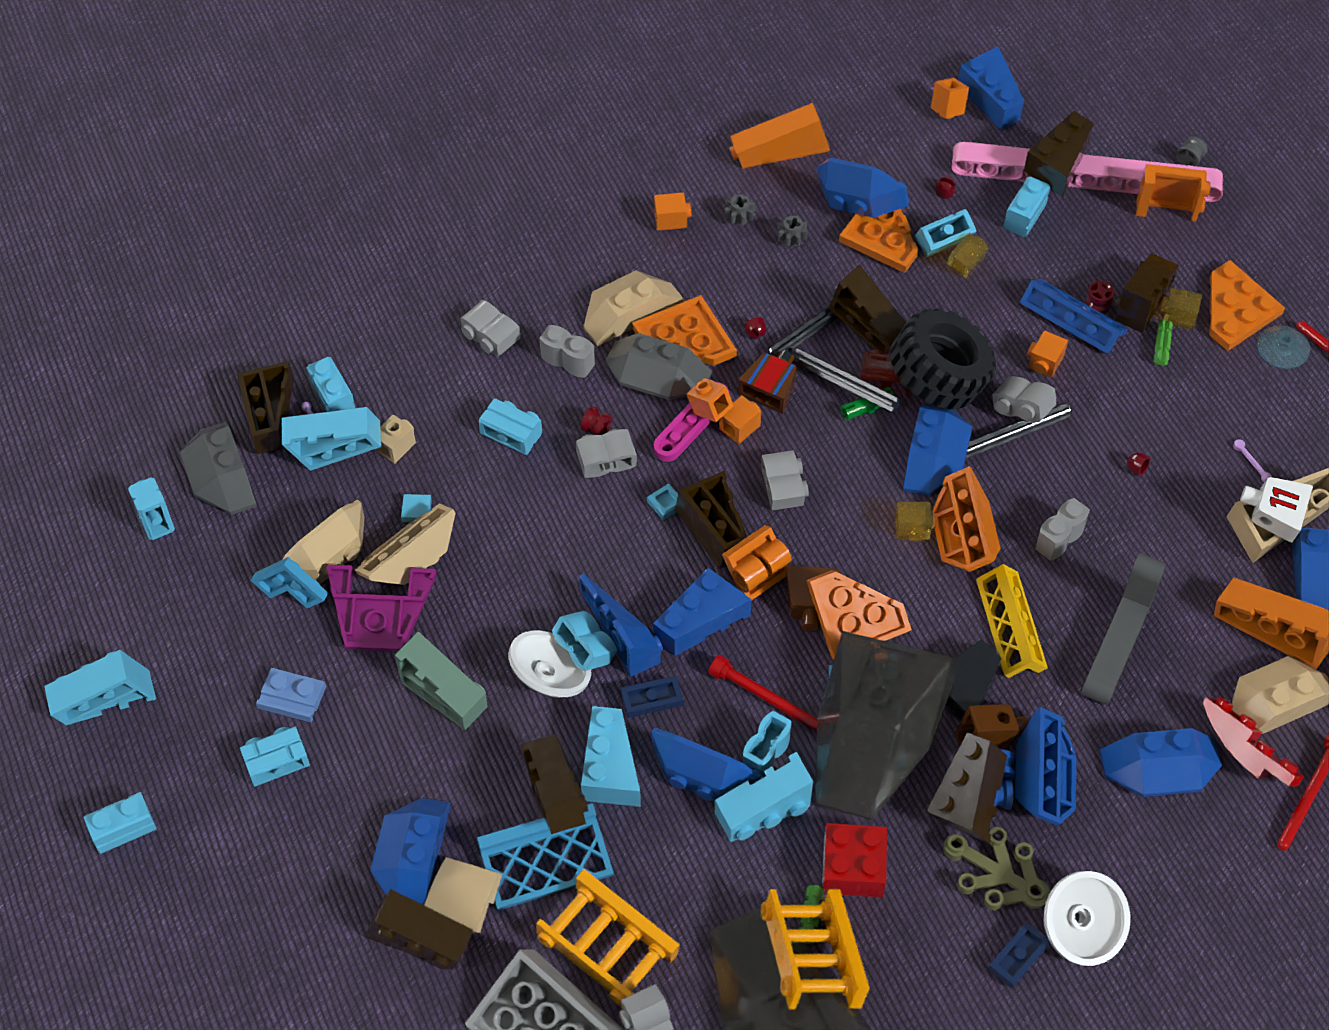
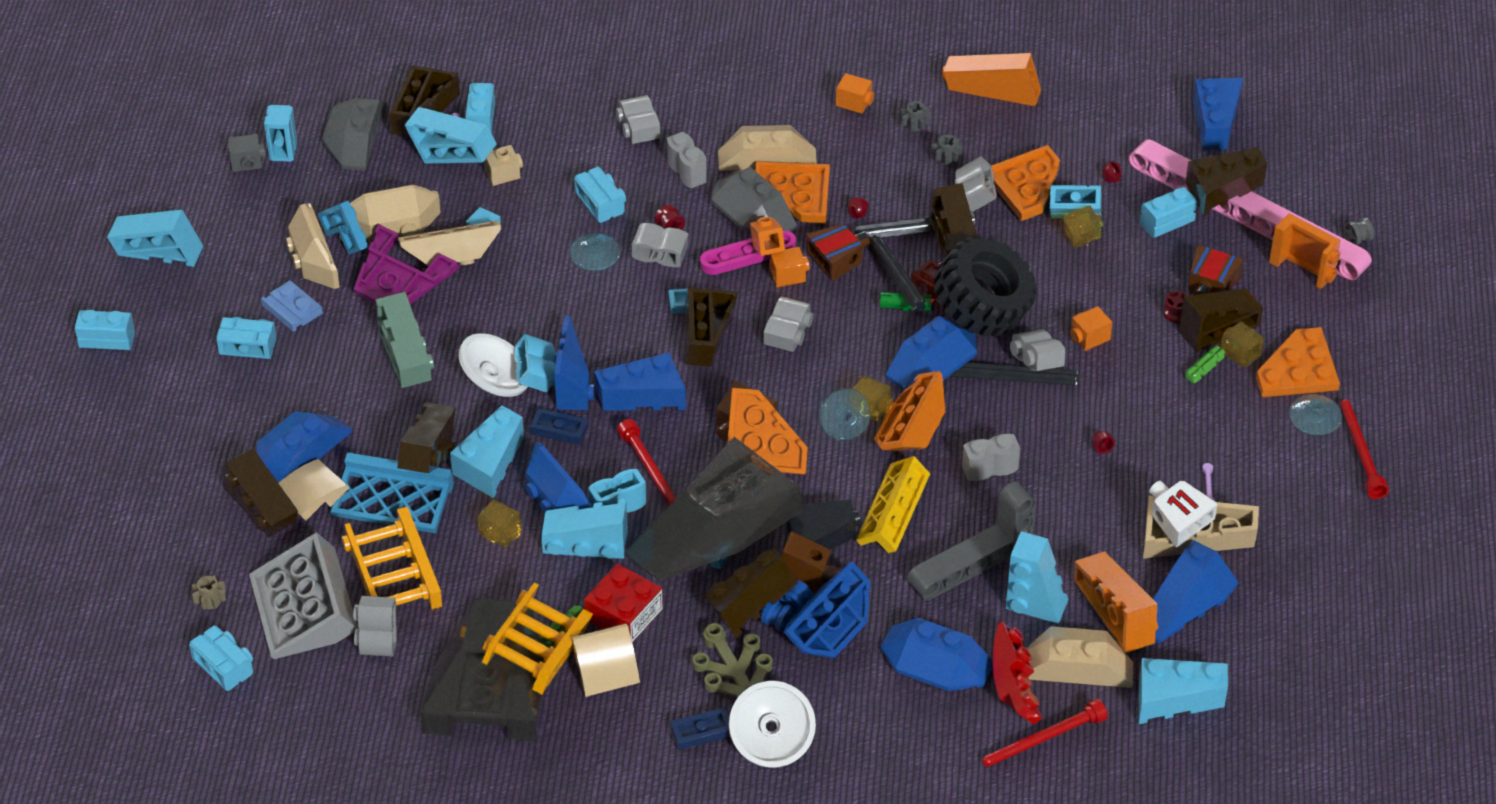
camera: 30 degrees right, 10 degrees down
(125, 546) = (245, 152): none -> dark grey brick
(270, 623) = (310, 248): none -> tan wedge
(544, 497) = (594, 251): none -> clear light blue dish
(675, 835) = (499, 523): none -> clear yellow brick
(757, 562) = (712, 367): orange plate -> none
(844, 253) = (977, 182): none -> light grey brick
(860, 188) = (1025, 137): blue wedge -> none
(888, 933) = (606, 660): none -> tan slope
(905, 565) = (837, 407): none -> clear light blue dish
(949, 98) = (1168, 102): orange brick -> none
(1072, 315) = (1141, 309): blue fence -> none
(1105, 250) = (1214, 271): none -> reddish brown torso
(1200, 641) = (1033, 580): none -> medium azure wedge

